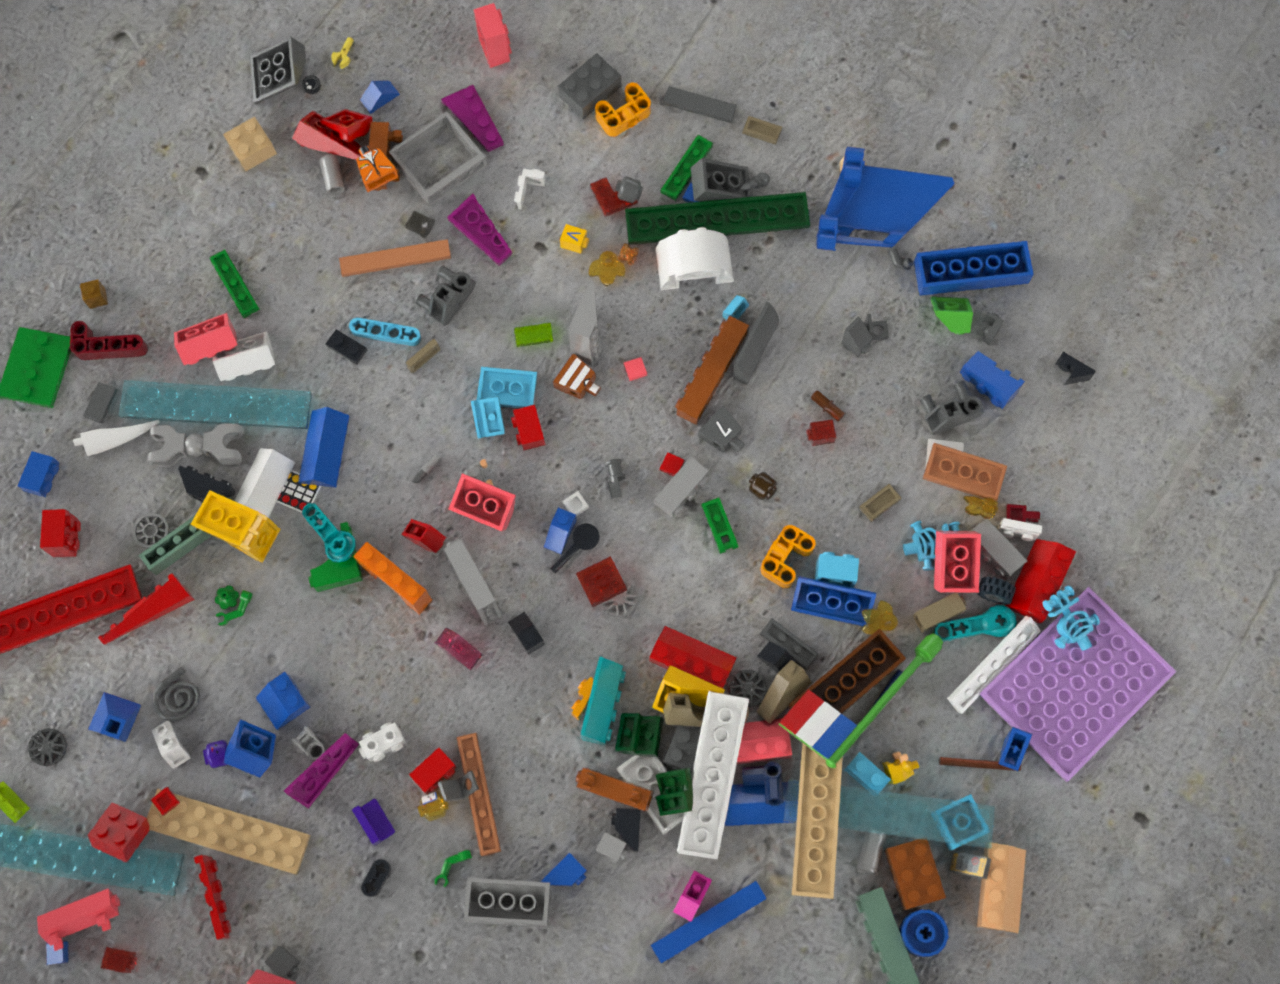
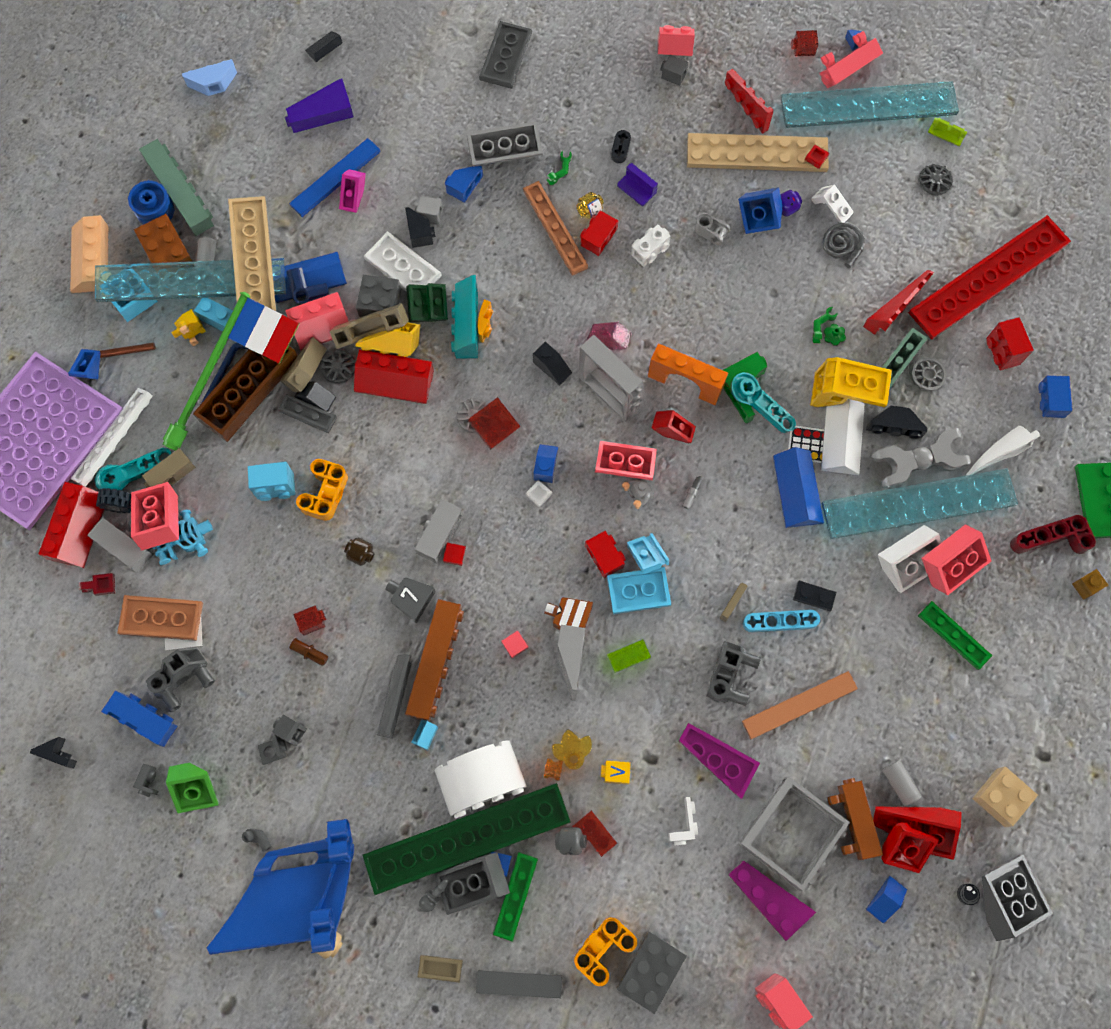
camera: 165 degrees right, 0 degrees up
(100, 402) = (1031, 480): dark grey tile -> none
(114, 717) = (889, 210): blue slope -> none
(119, 832) = (844, 123): red brick -> none
(282, 700) = (748, 259): blue slope -> none
(317, 776) = (694, 207): magenta wing -> none
(343, 54) = (948, 945): light yellow bar -> none
(375, 168) = (857, 792): orange torso -> none
(420, 224) = (786, 751): clear smoke tile -> none
(456, 789) = (574, 223): dark grey bracket -> none
(585, 538) = (521, 463): black piece -> none
(614, 788) = (437, 251): dark orange brick -> none
(615, 476) = (506, 527): dark grey connector -> none
(675, 791) = (383, 256): dark green slope -> none
(713, 774) = (351, 277): white plate -> none
(719, 524) = (395, 505): green plate -> none
(831, 601) = (297, 456): blue slope -> none
(878, 617) = (220, 452): clear yellow plate -> none
(880, 502) = (241, 566): dark tan tile -> none
(970, 865) = (109, 257): dark grey tile -> none
(973, 268) = (172, 844): blue brick -> none
(977, 506) = (140, 580): clear yellow plate -> none
(1027, 531) = (97, 567): white plate -> none
(1072, 631) = (39, 485): medium azure piece -> none

